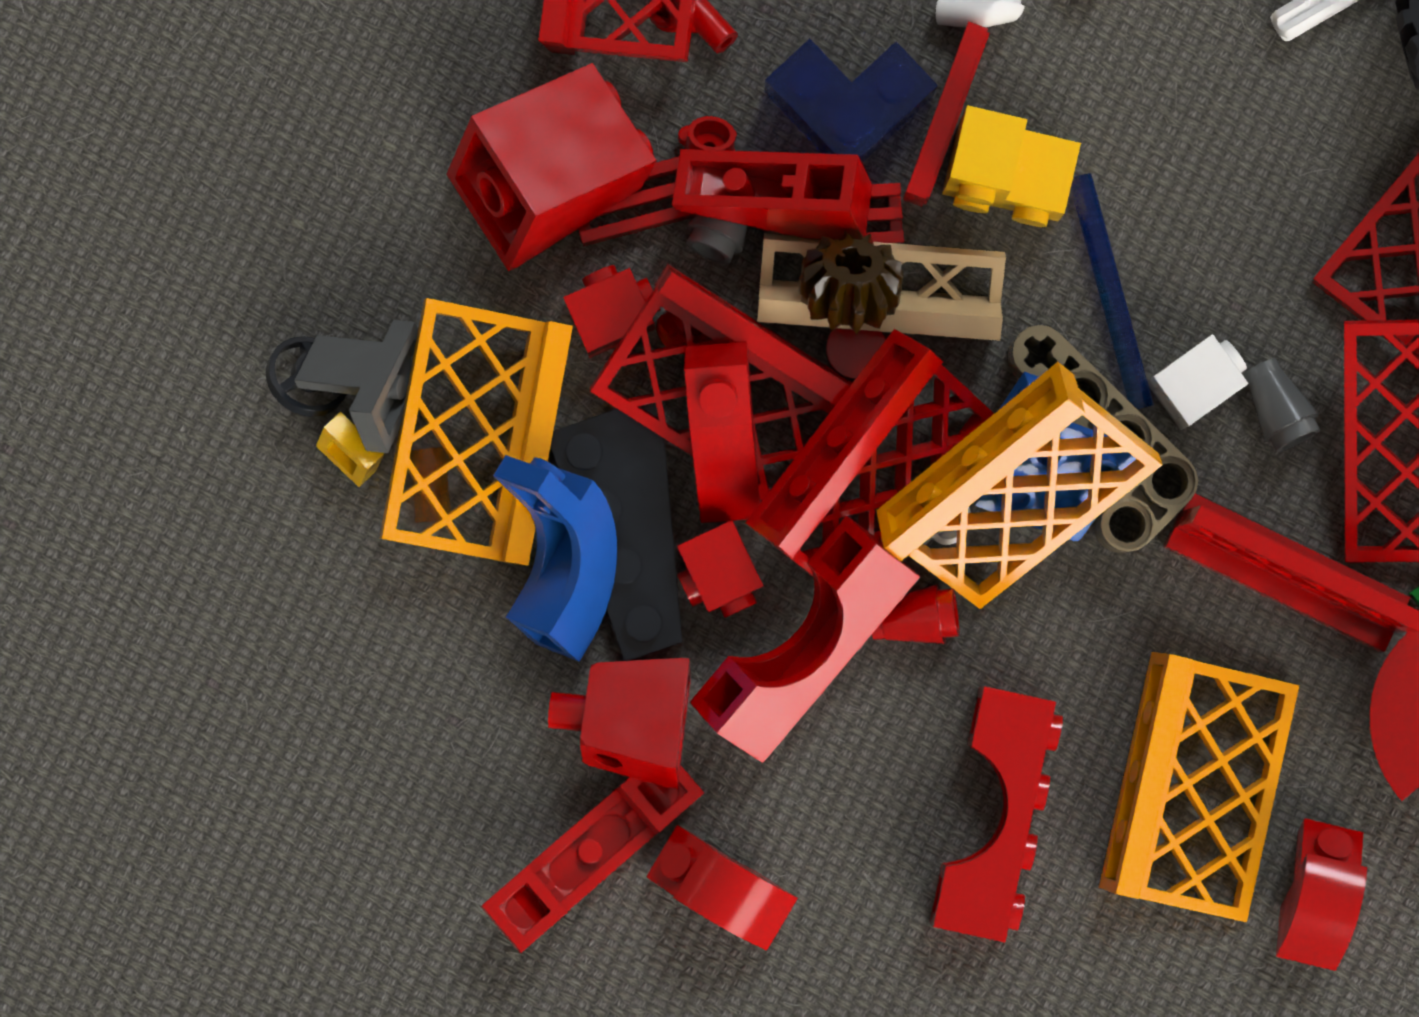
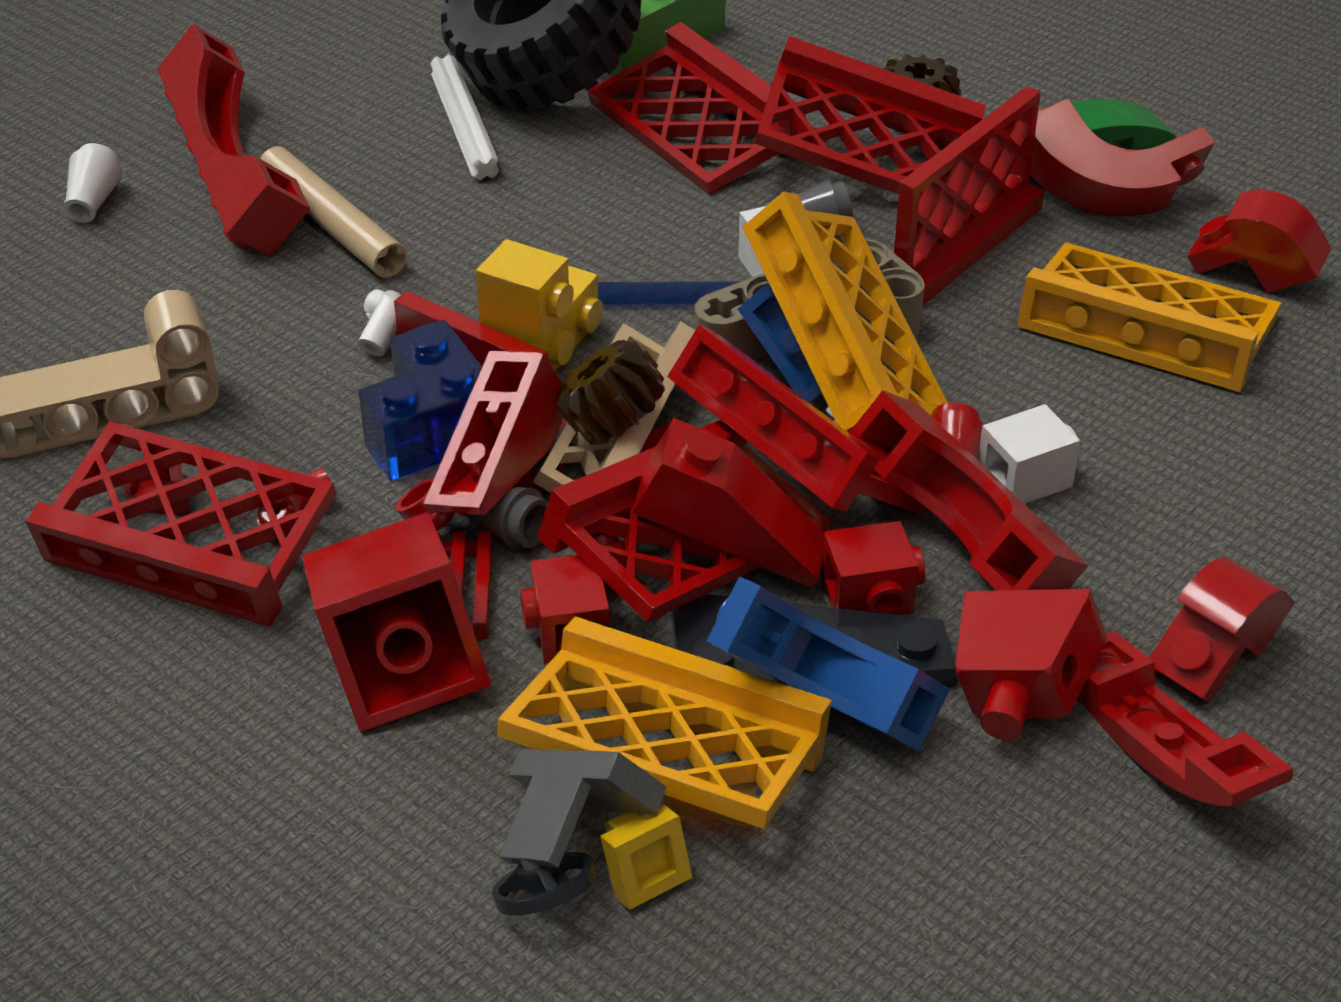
camera: 75 degrees left, 45 degrees down
(920, 692) = (1030, 453): none -> white brick
(980, 890) = (1229, 441): red arch -> none

